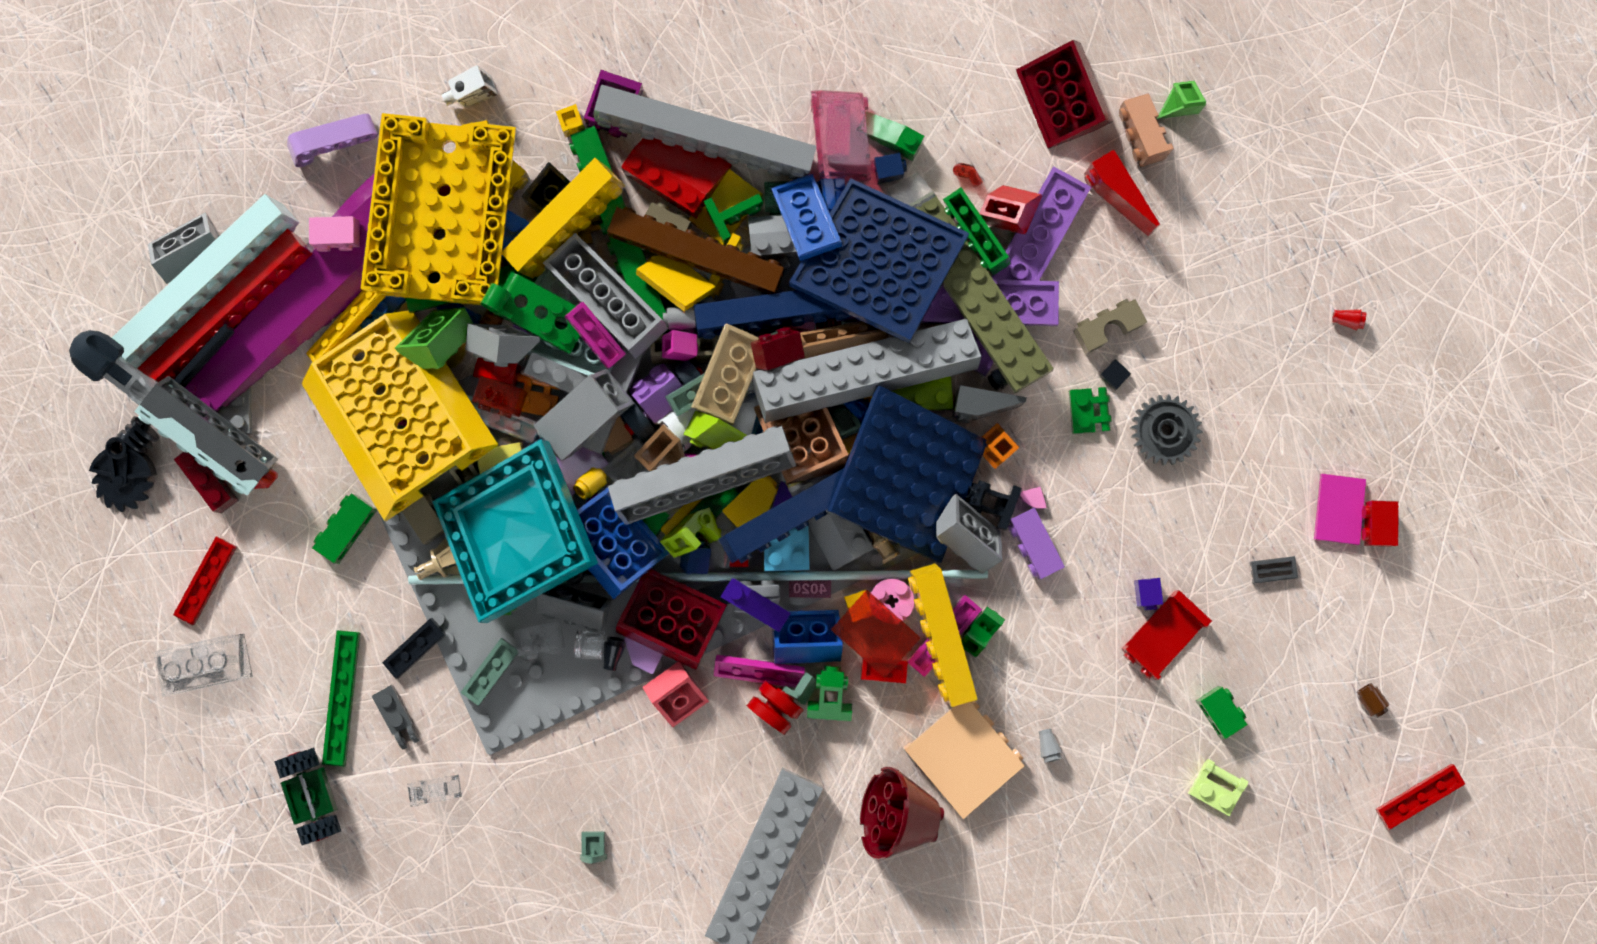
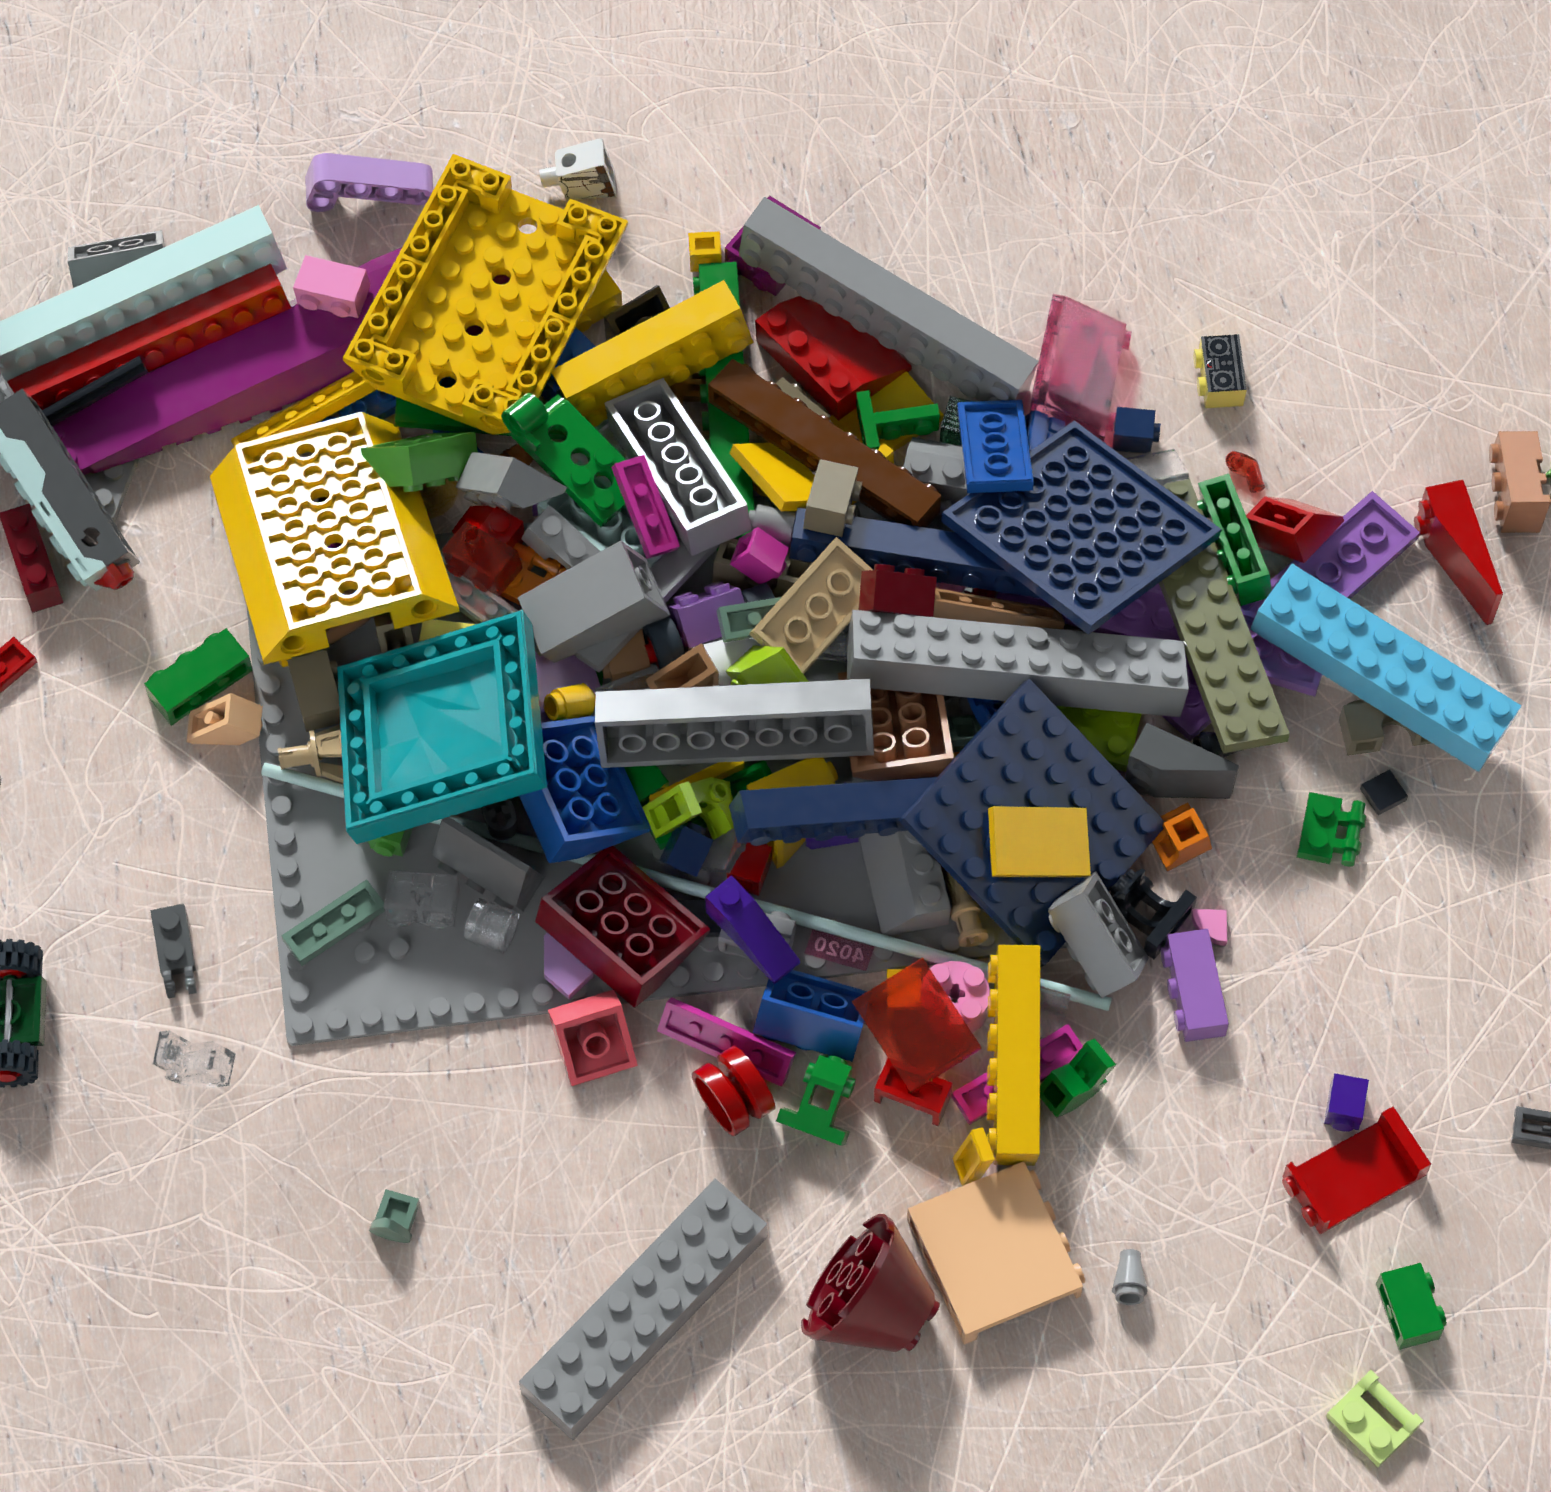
camera: 20 degrees right, 20 degrees down
(341, 698) = (105, 903): green tile -> none
(373, 555) = (225, 722): none -> light nougat slope
(414, 648) = (236, 864): black tile -> none
(613, 651) = (521, 948): black cone -> none
(714, 294) = (831, 498): none -> brick
(790, 553) = (823, 878): medium azure brick -> none
(803, 690) = (787, 1083): sand green tile -> none
(894, 135) = (1156, 391): green slope -> none
(917, 491) = (1039, 842): none -> yellow tile
(932, 107) = (1221, 371): none -> brick
(934, 704) = (973, 1157): none -> yellow tile
(1064, 94) = (1416, 405): dark red slope -> none
(1098, 298) = (1385, 667): none -> medium azure brick
(1182, 427) = (1433, 908): dark grey gear -> none

